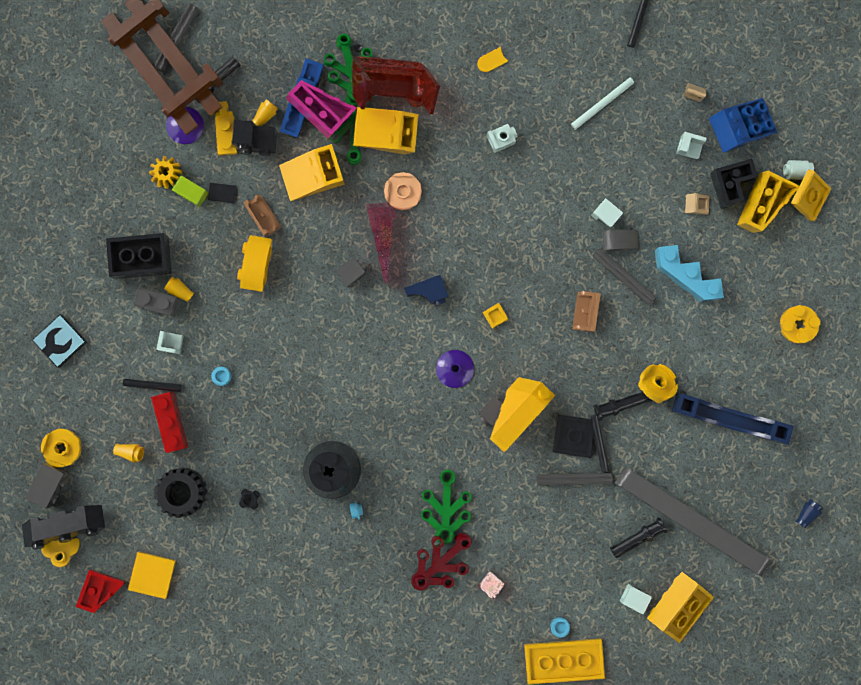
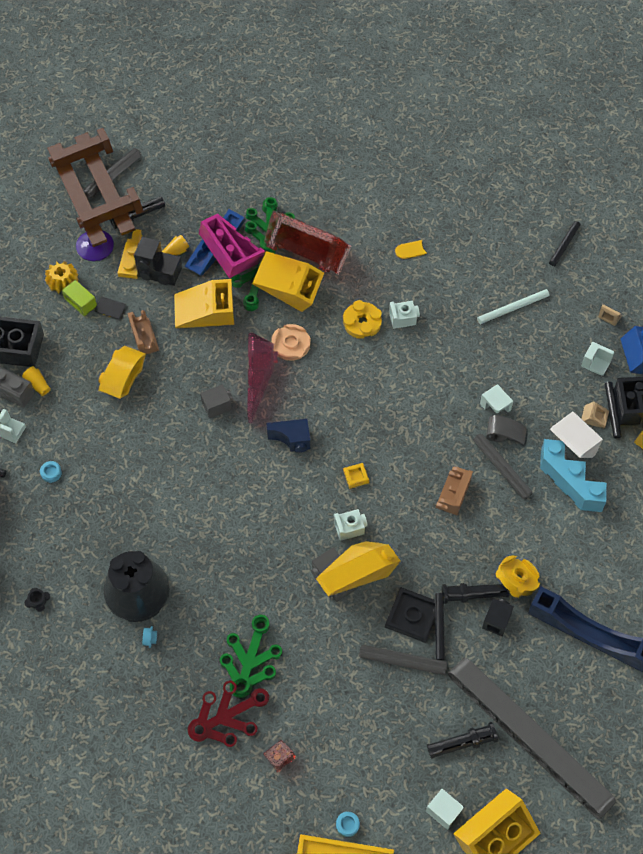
camera: 15 degrees right, 25 degrees down
(451, 378) = (299, 527): dark purple dish -> none
(470, 160) = (358, 310): none -> yellow plate
(496, 371) = (349, 530): none -> light aqua brick
(647, 422) = (498, 616): none -> black brick
(687, 238) = (577, 436): none -> white slope
(712, 194) = (613, 410): none -> black bar

